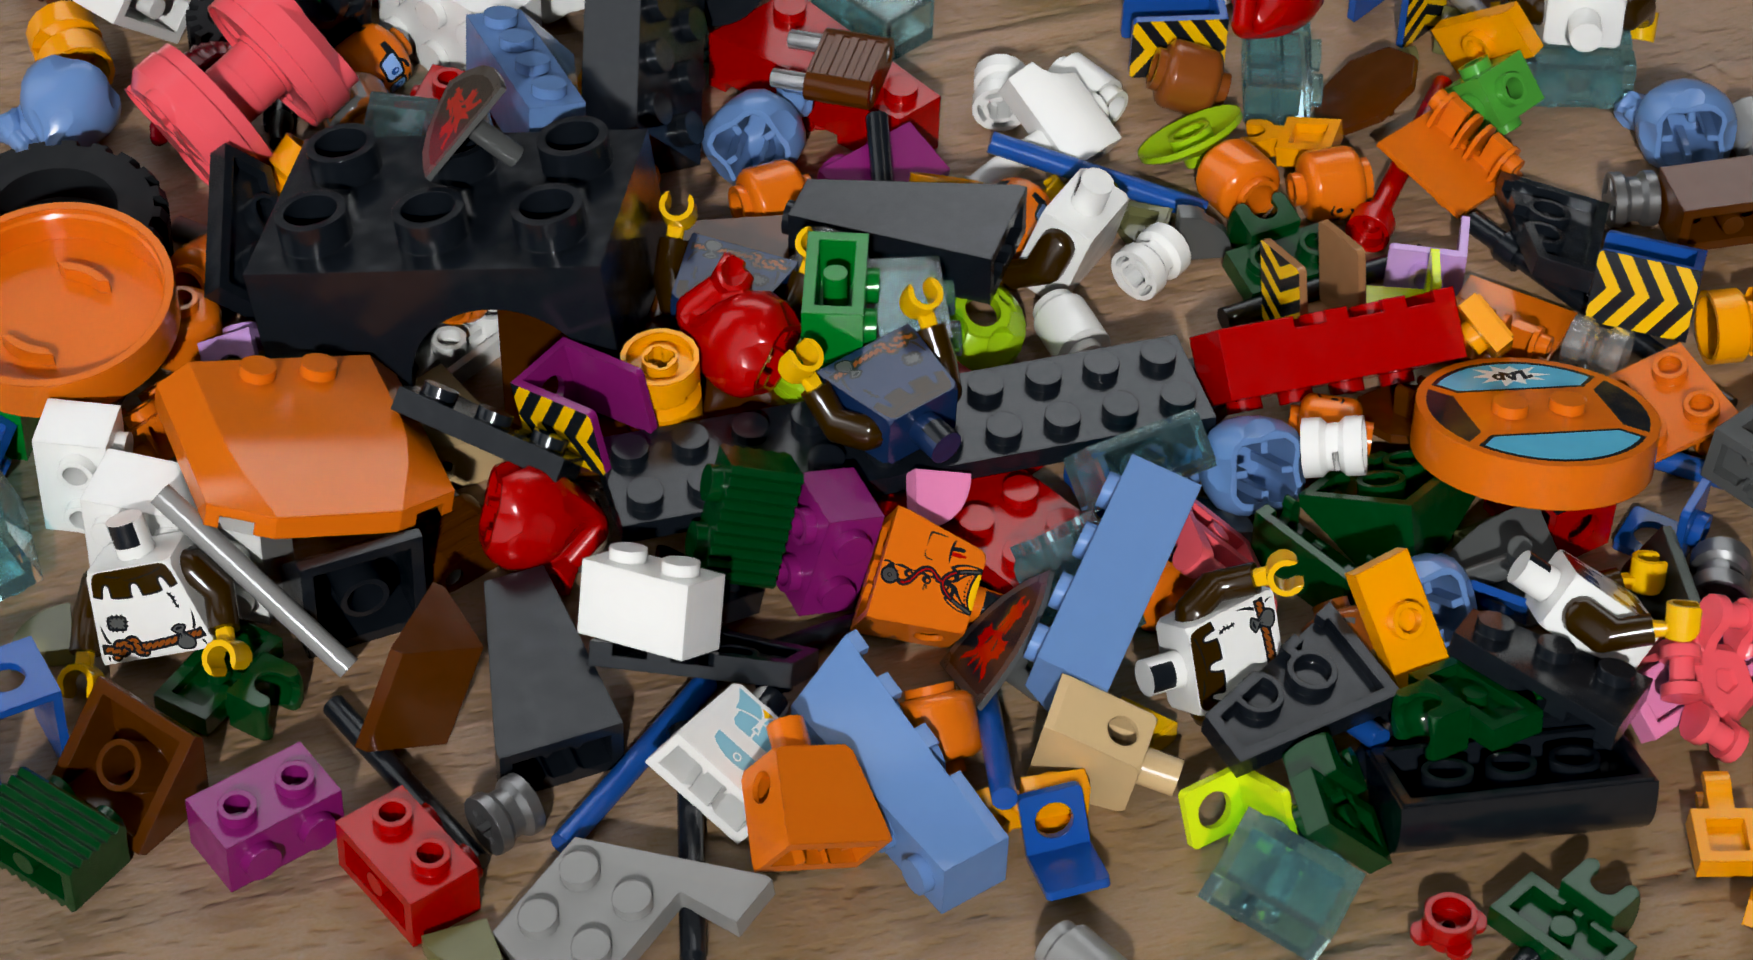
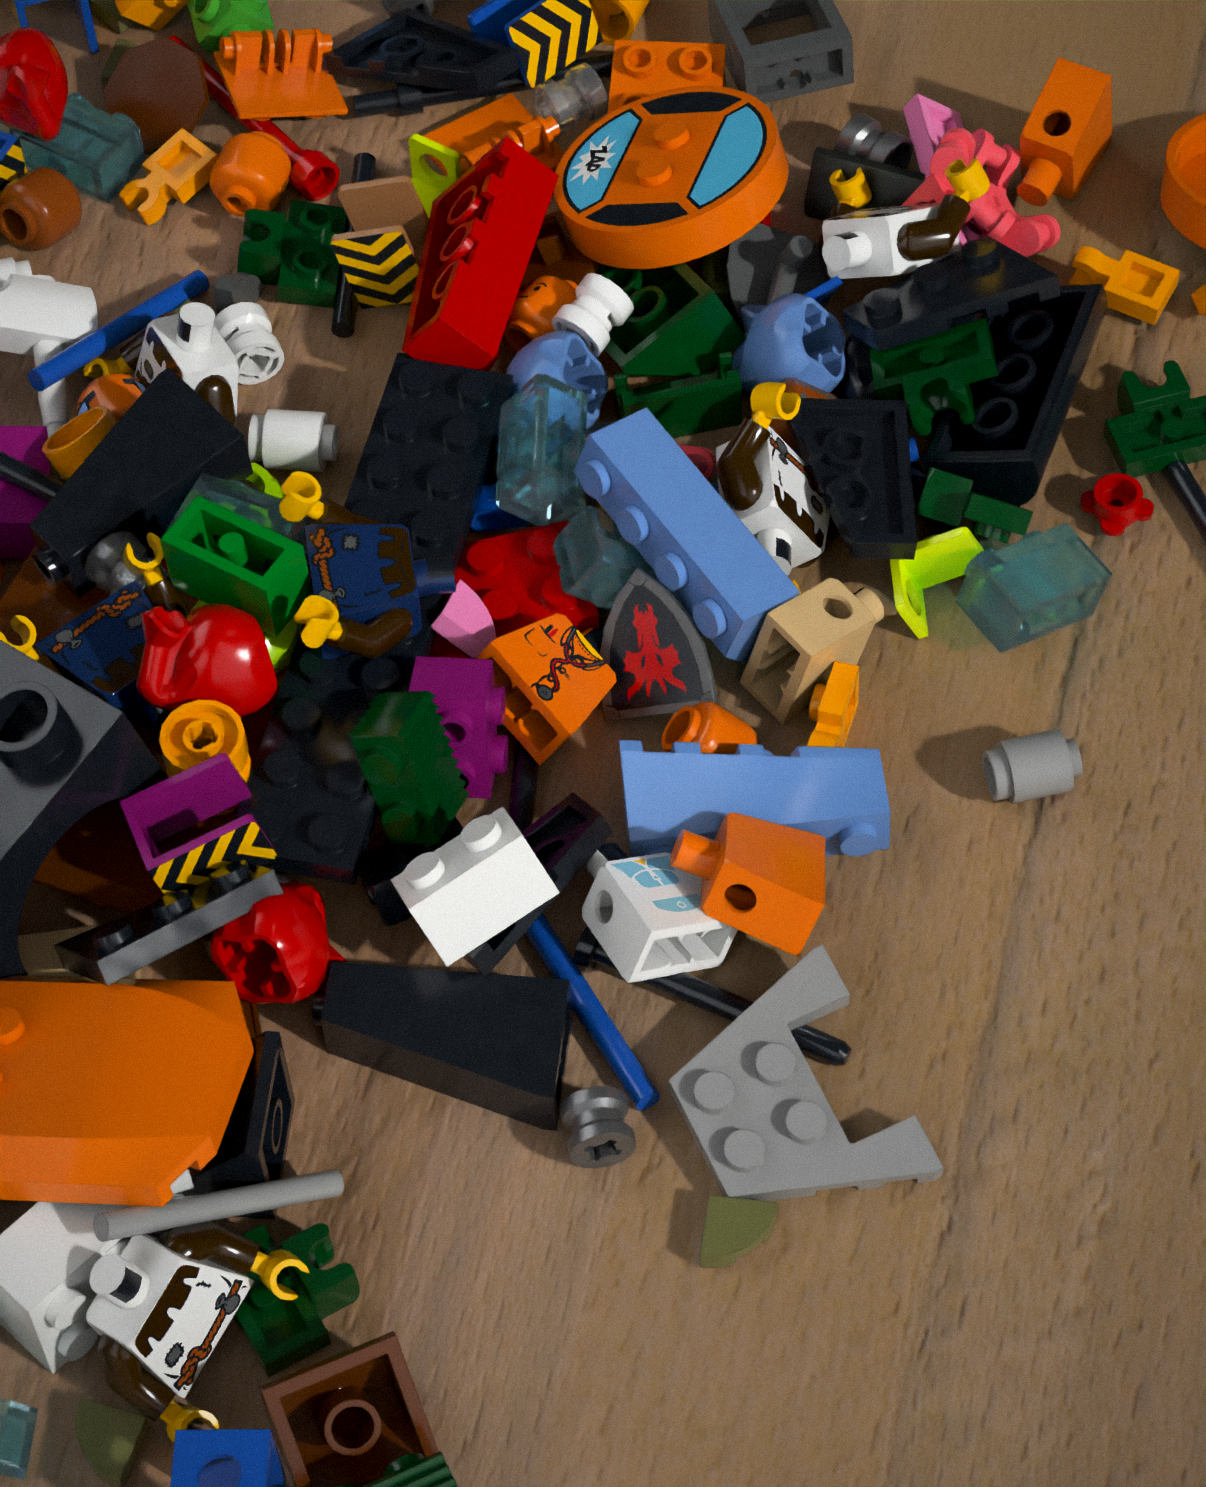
camera: 55 degrees left, 10 degrees up
(265, 816) = (481, 1328): magenta brick -> none
(397, 773) = (494, 1198): black bar -> none
(409, 864) = (613, 1230): red brick -> none
(423, 678) = (404, 1115): reddish brown slope -> none
(997, 756) = (790, 717): blue bar -> none
(1063, 860) = (896, 728): blue bracket -> none
(1190, 136) = (115, 240): lime dish -> none
(1235, 175) = (198, 234): orange head -> none
(1396, 614) = (823, 359): light orange plate -> none
(1408, 263) = (396, 157): lavender bracket -> none
(1484, 328) = (550, 140): light orange plate -> none
(1690, 530) = (807, 133): blue bracket -> none

